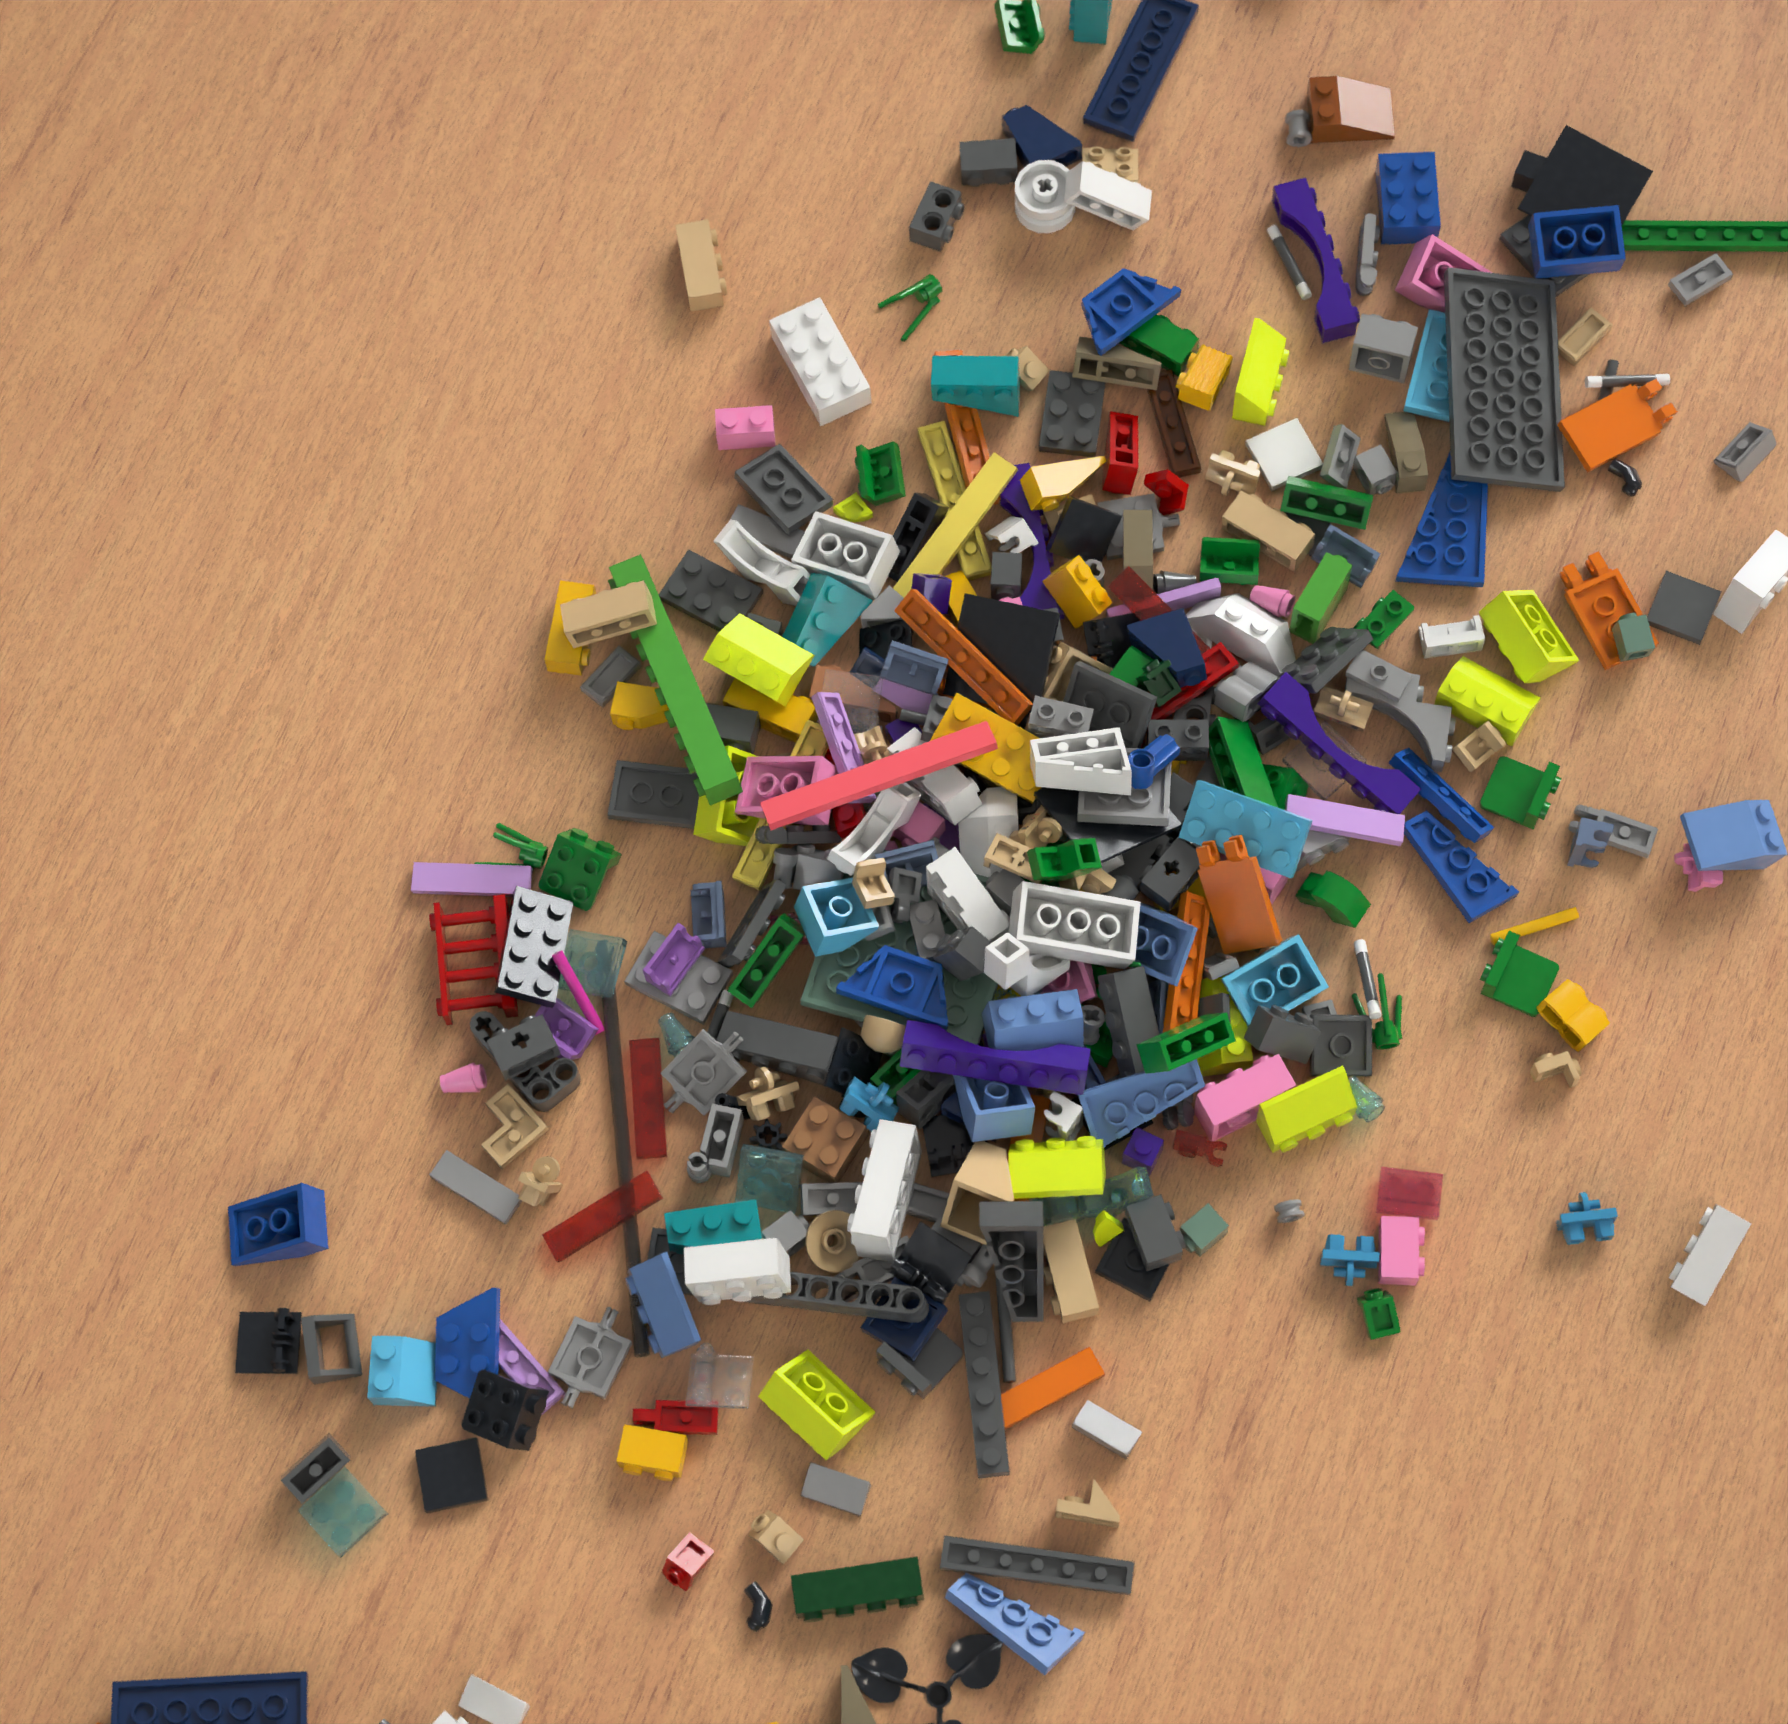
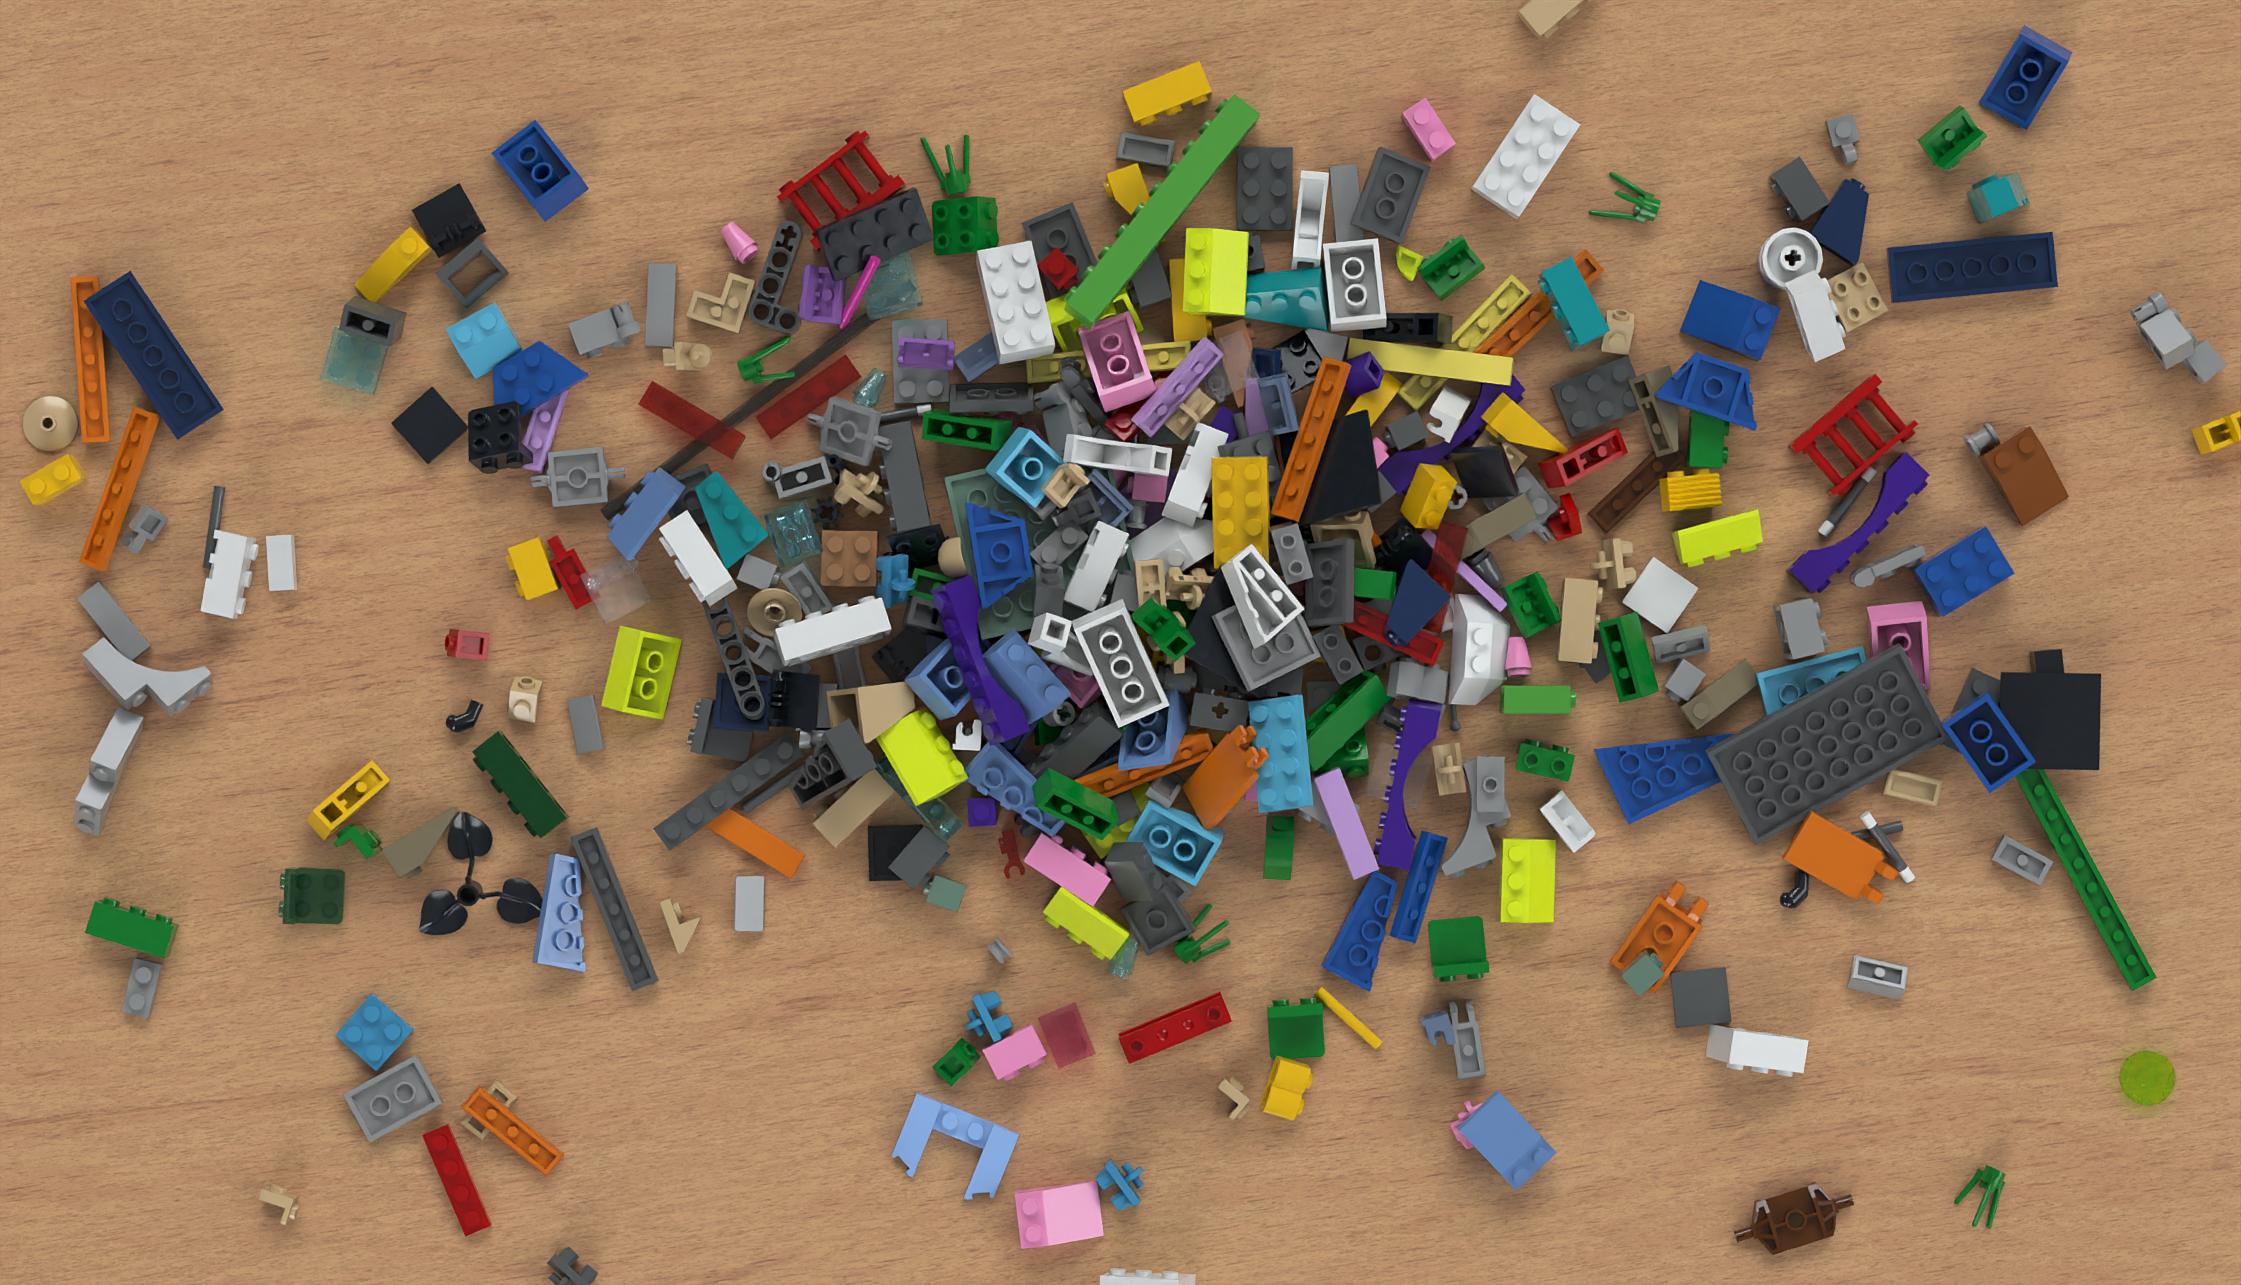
camera: 55 degrees right, 20 degrees up
(275, 1418) = (393, 265): none -> yellow slope
(465, 1250) = (604, 329): none -> light grey hinge
(469, 879) = (906, 144): lavender tile -> none
(510, 1056) = (768, 276): dark grey brick -> none
(586, 1130) = (753, 365): none -> green plant
(608, 614) = (1185, 124): tan brick -> none
(671, 802) = (1059, 270): none -> red bracket
(676, 854) = (1015, 302): none -> white brick
(878, 775) = (1157, 436): coral tile -> none
(931, 215) = (1718, 168): dark grey brick -> none
(963, 106) = (1843, 134): none -> light grey plate
(1070, 271) = (1730, 320): none -> blue slope
(1106, 1228) = (904, 817): neon yellow tile -> none
(1149, 761) = (1297, 648): blue piece -> none
(1159, 681) = (1373, 613): dark green bracket -> none
(1212, 242) = (1827, 426): none -> red fence
(1327, 656) = (1480, 731): dark grey plate -> none
(1355, 552) = (1589, 697): sand blue hinge -> none
(1367, 979) = (1224, 911): dark grey bar -> none
(1419, 1367) = (991, 1137): none -> light blue wedge
(1458, 1080) = (1174, 1027): none -> red fence
(1479, 746) = (1478, 895): tan bracket -> none
(1527, 635) = (1601, 884): neon yellow slope -> none
(1585, 1300) = (1058, 1214): none -> bright pink slope

